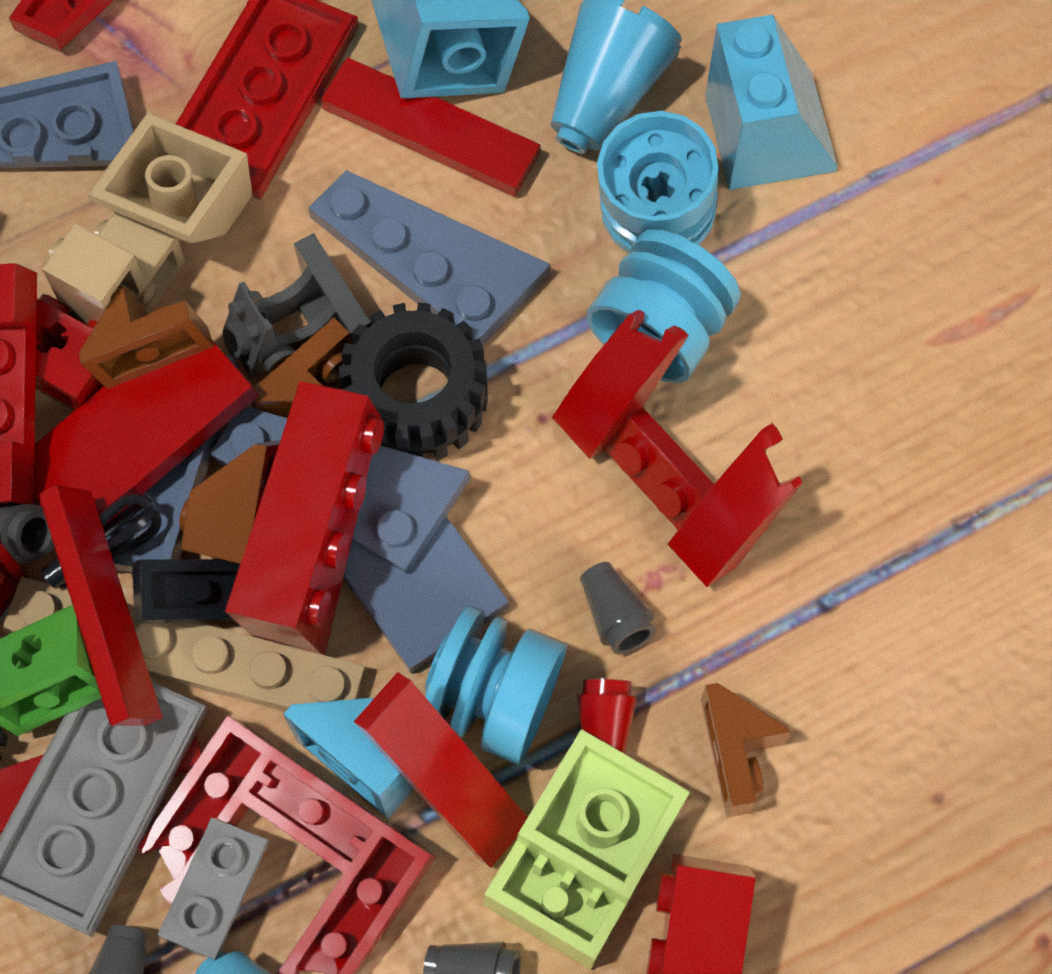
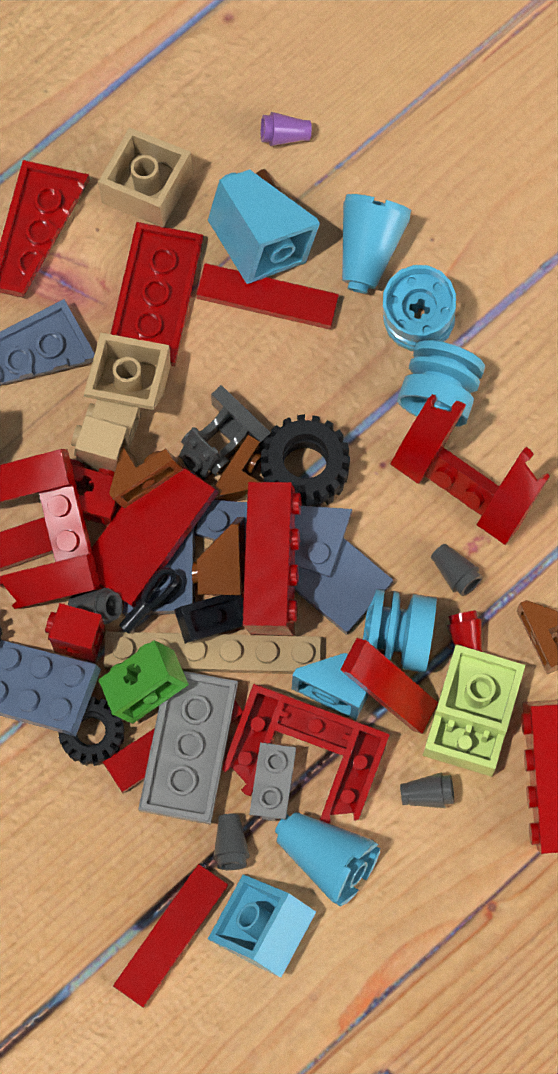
camera: 15 degrees left, 5 degrees up
(100, 607) = (166, 638): red tile -> none
(430, 253) = (288, 379): sand blue wing -> none
(765, 106) = (471, 243): medium azure slope -> none

